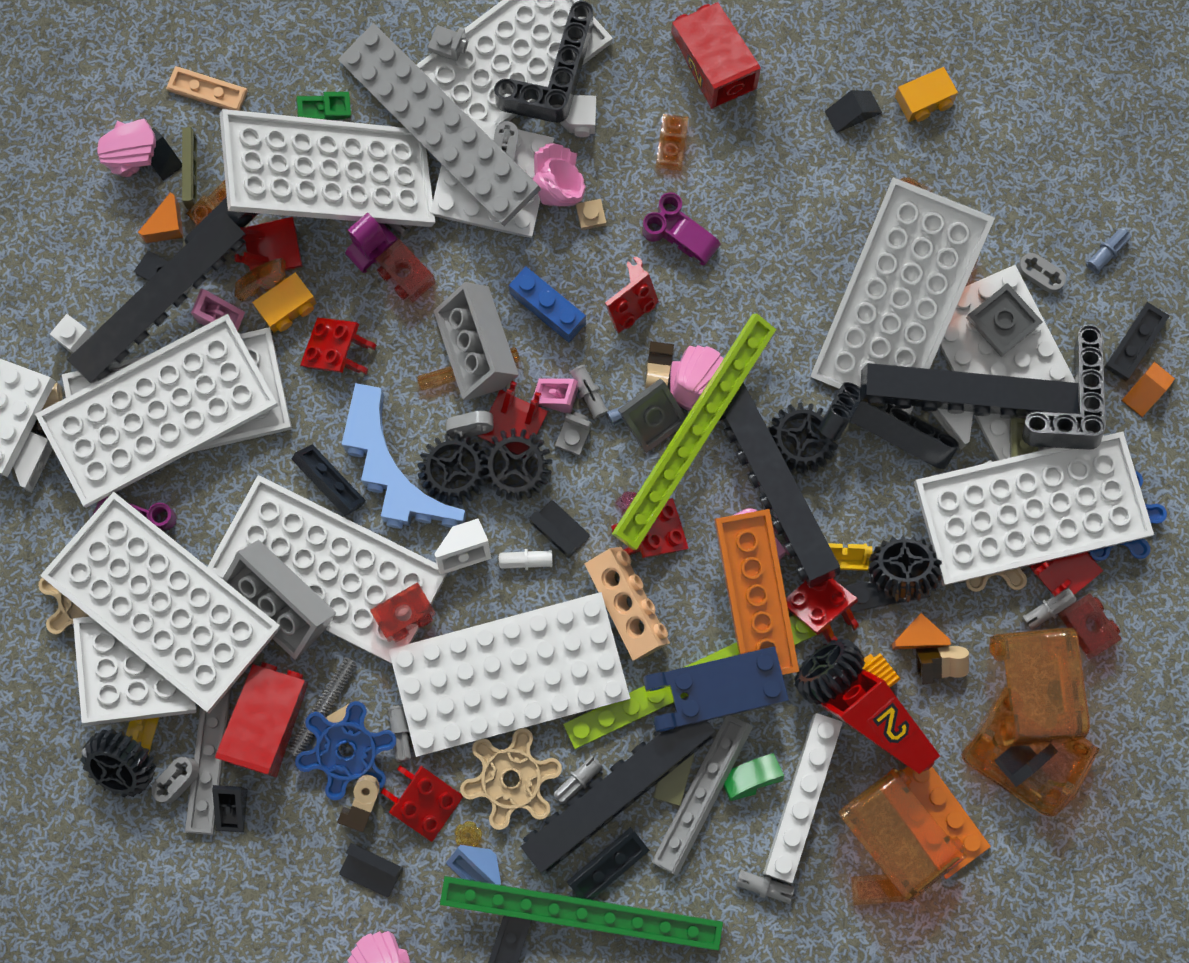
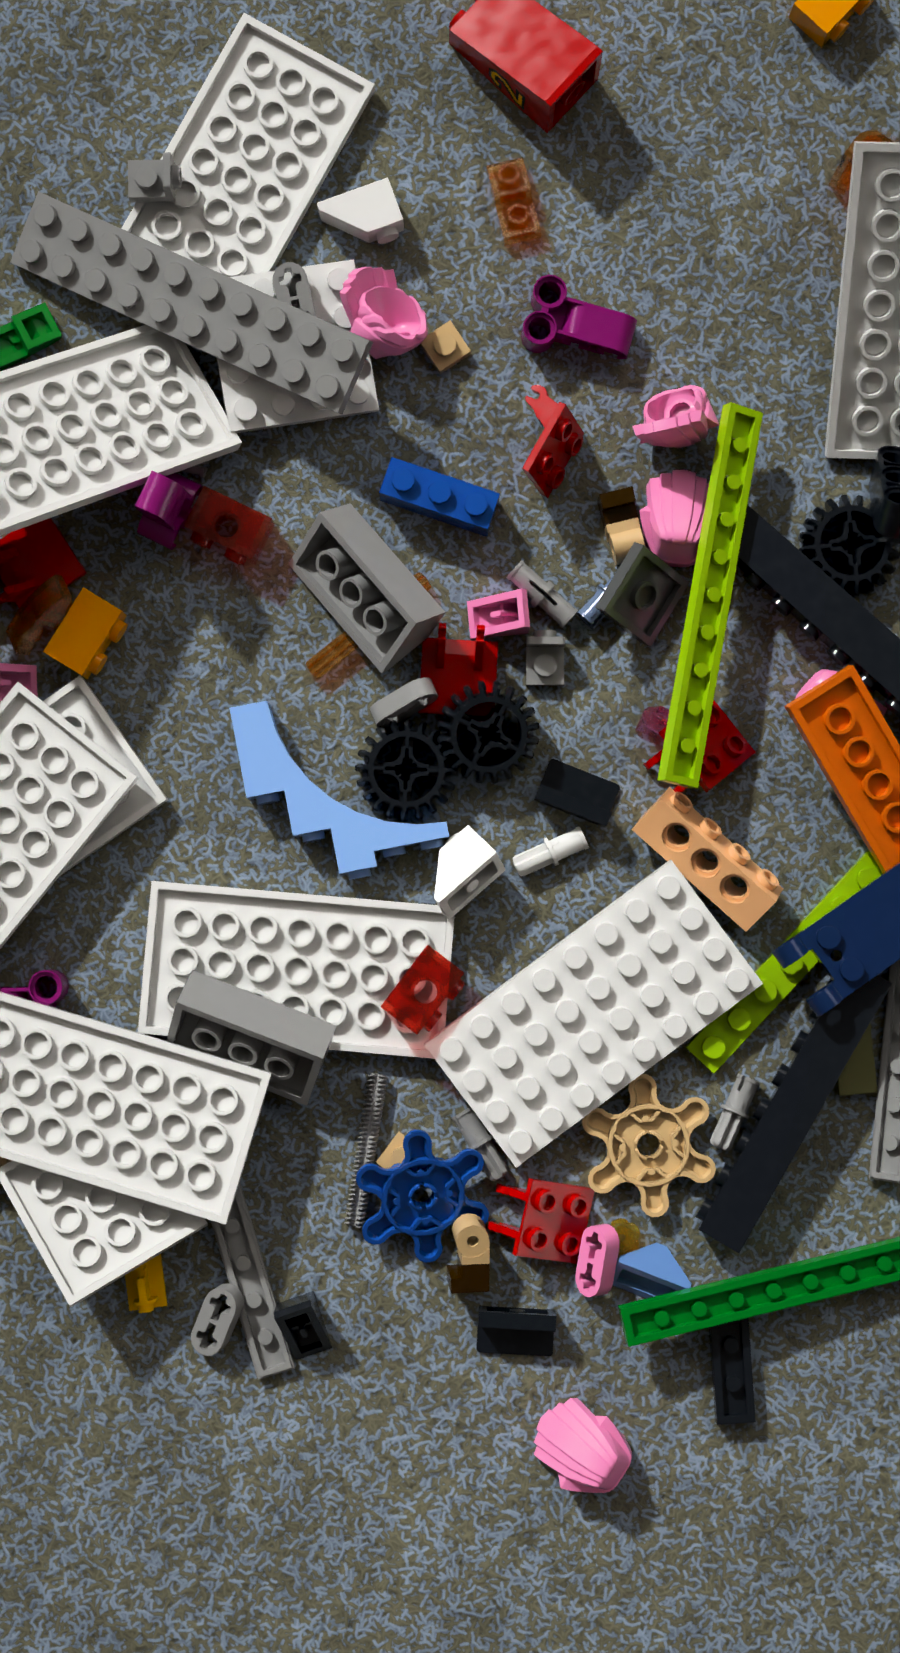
camera: 20 degrees left, 10 degrees up
(118, 763) = (136, 1331): black gear -> none
(263, 720) = (298, 1201): red slope -> none
(328, 479) = (246, 850): black plate -> none
(330, 346) = (172, 667): red plate -> none
(444, 842) = (597, 1260): none -> bright pink beam
(562, 71) = (331, 161): black beam -> none
(608, 865) = (817, 1205): black plate -> none
(719, 313) = (676, 418): none -> bright pink hair
(852, 109) = (740, 60): black slope -> none

